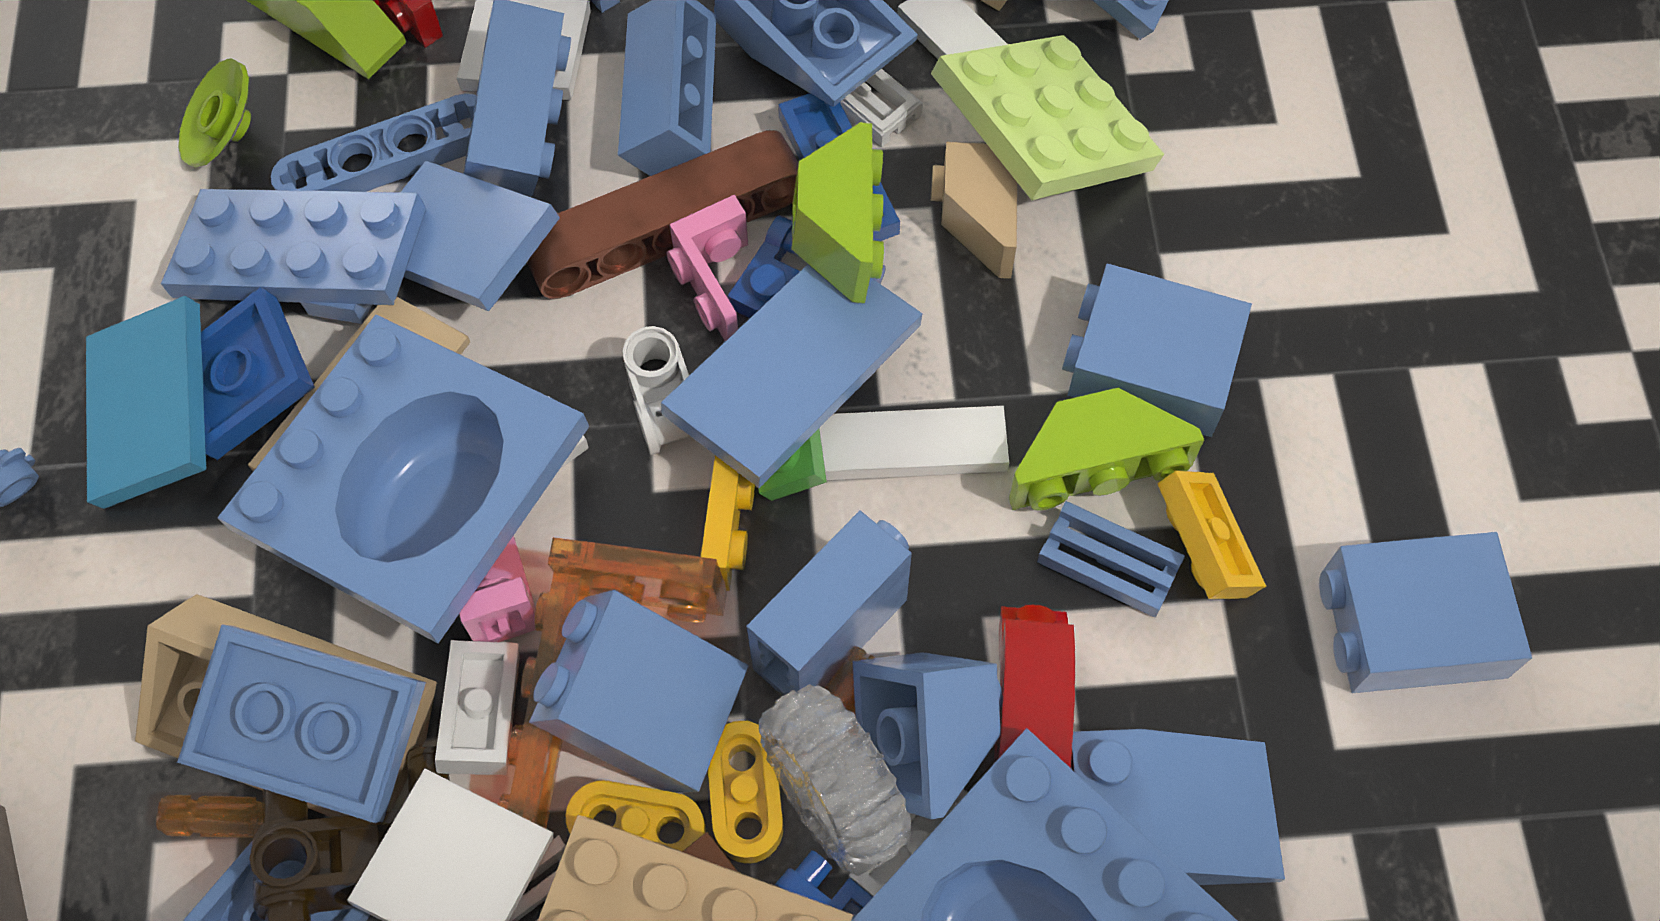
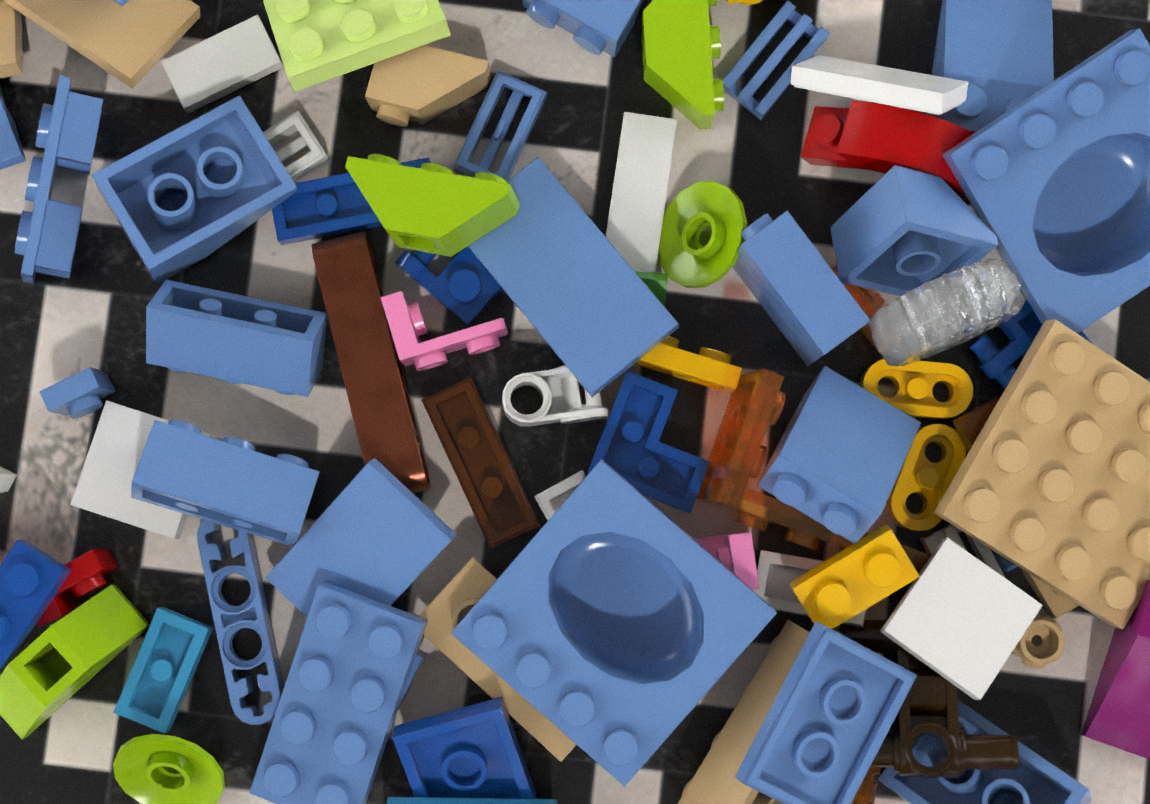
camera: 80 degrees left, 20 degrees up
(321, 93) = (163, 670): none -> dark azure plate
(487, 733) = (854, 578): none -> yellow plate
(583, 336) = (480, 462): none -> reddish brown tile
(627, 480) = (634, 449): none -> blue plate
(896, 500) = (701, 234): none -> lime dish
(950, 303) = (520, 89): none -> medium blue tile
(1103, 658) = (879, 84): none -> white tile

